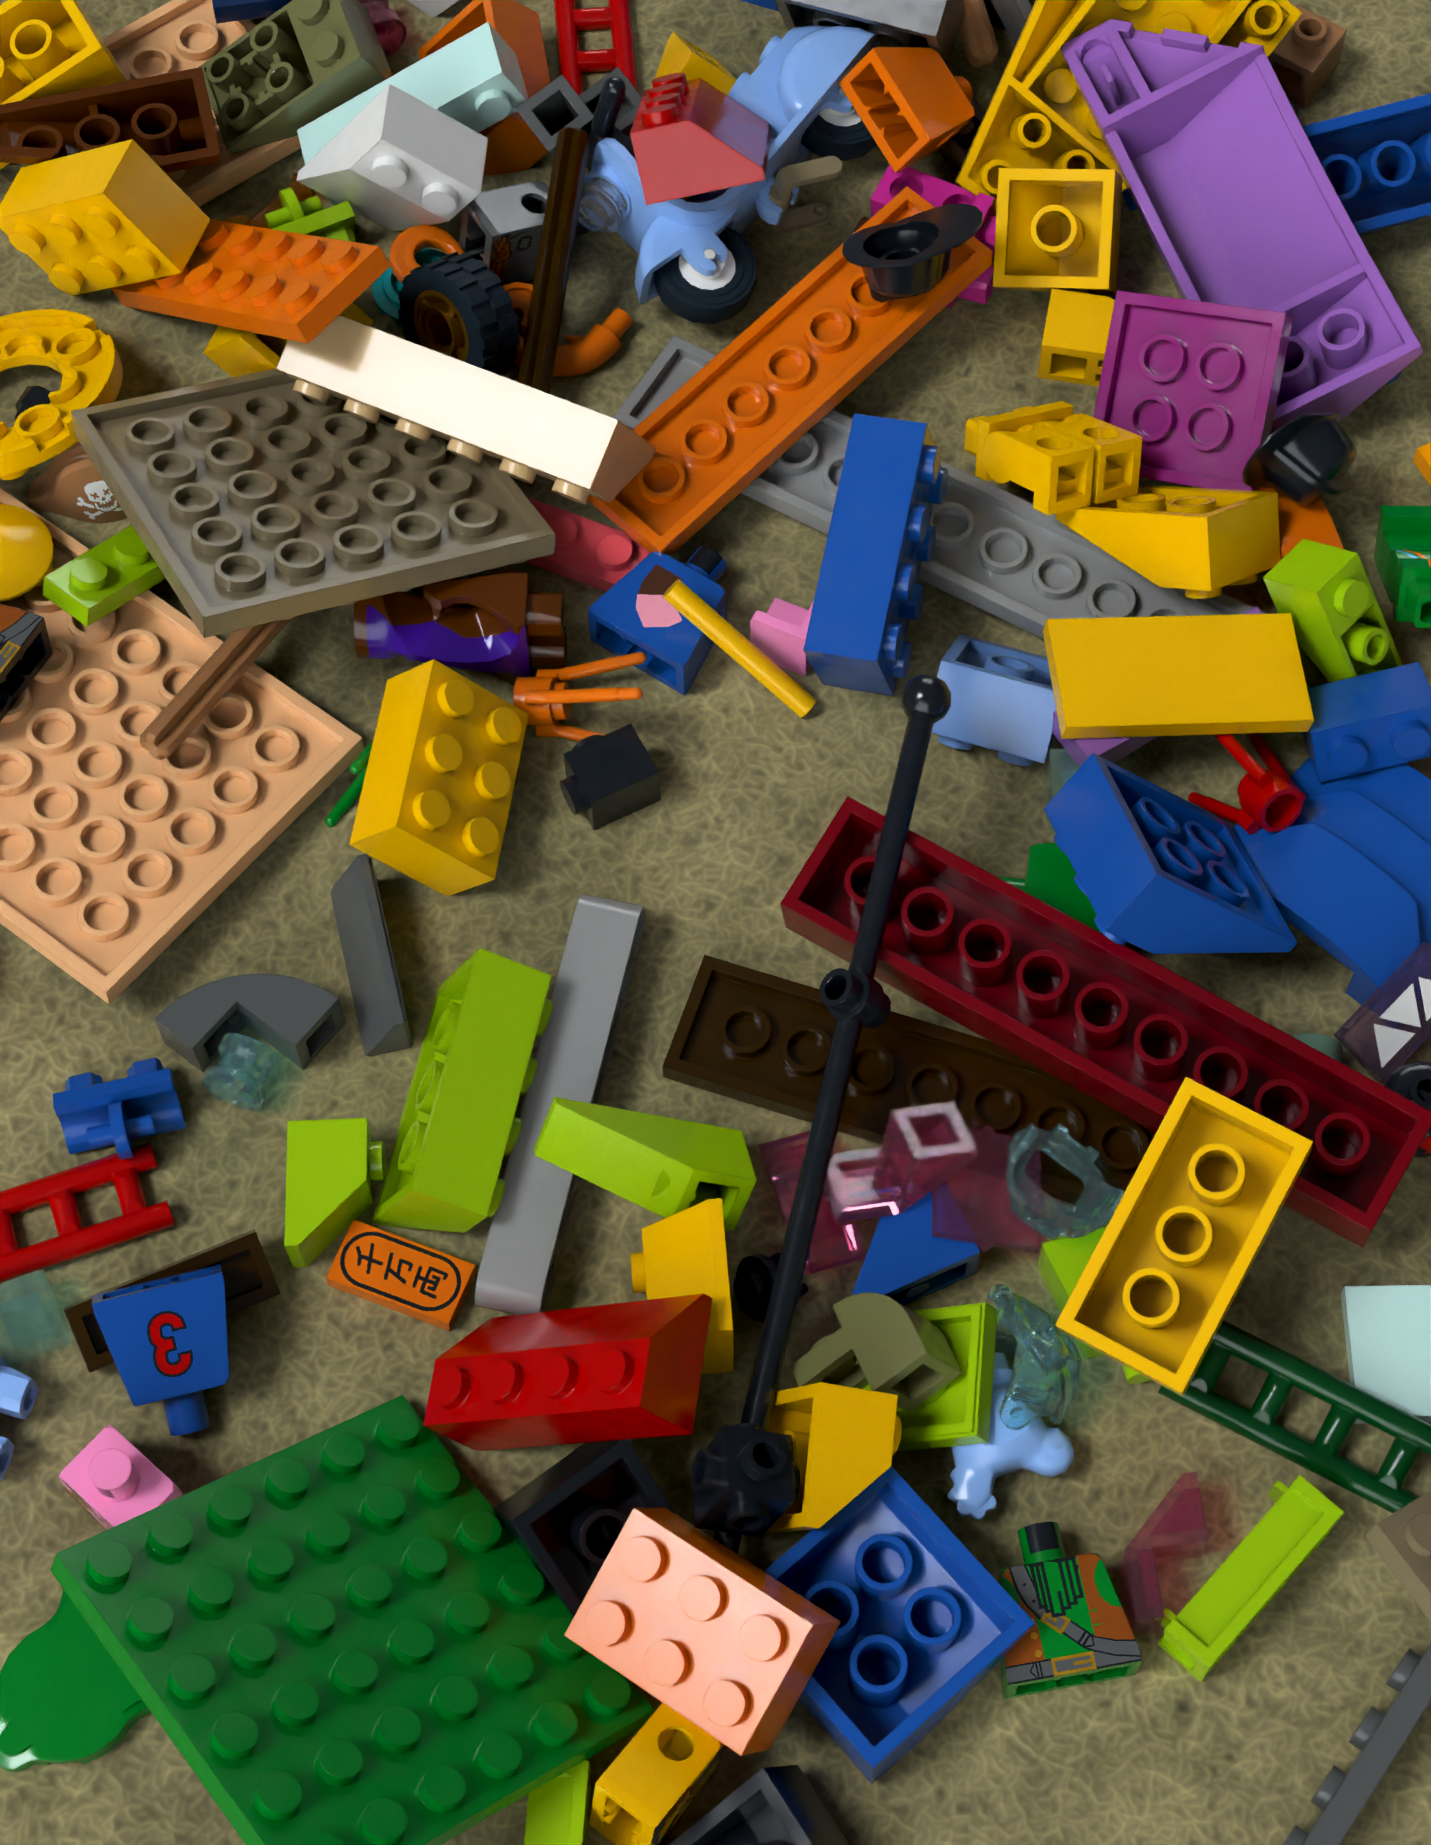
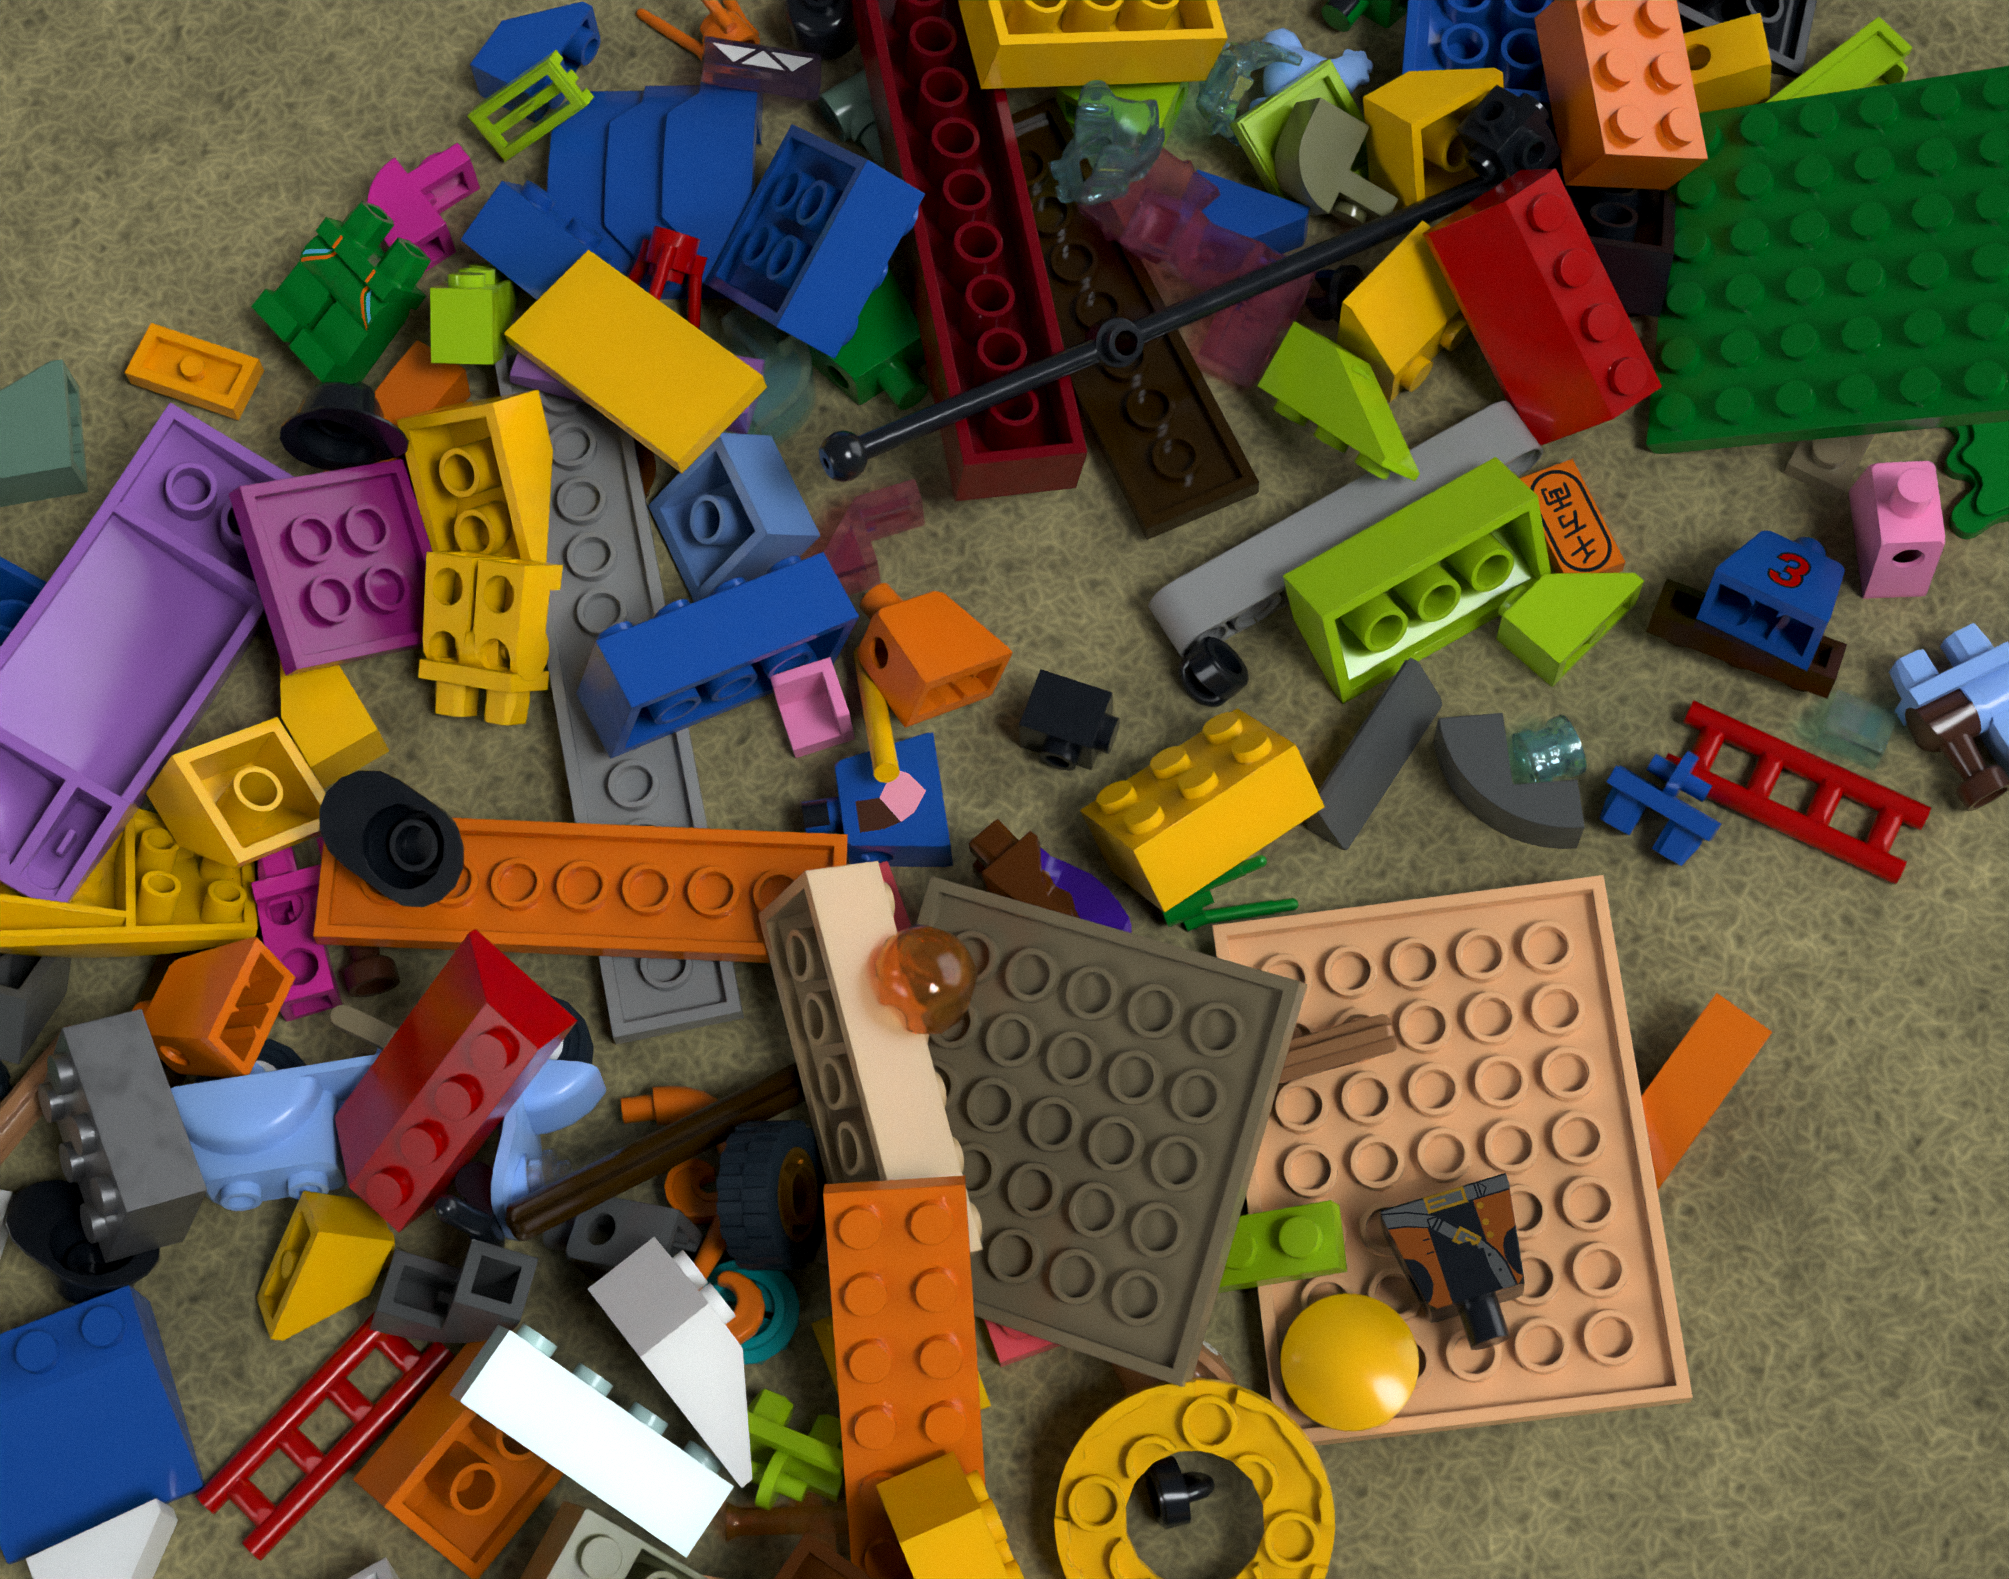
camera: 130 degrees left, 5 degrees up
(477, 451) = (926, 977): none -> clear orange hair
(545, 910) = (1216, 668): none -> black tile
(549, 697) = (1047, 818): orange plant -> none
(754, 717) = (927, 654): none -> orange torso
(881, 744) = (867, 520): none -> clear pink slope

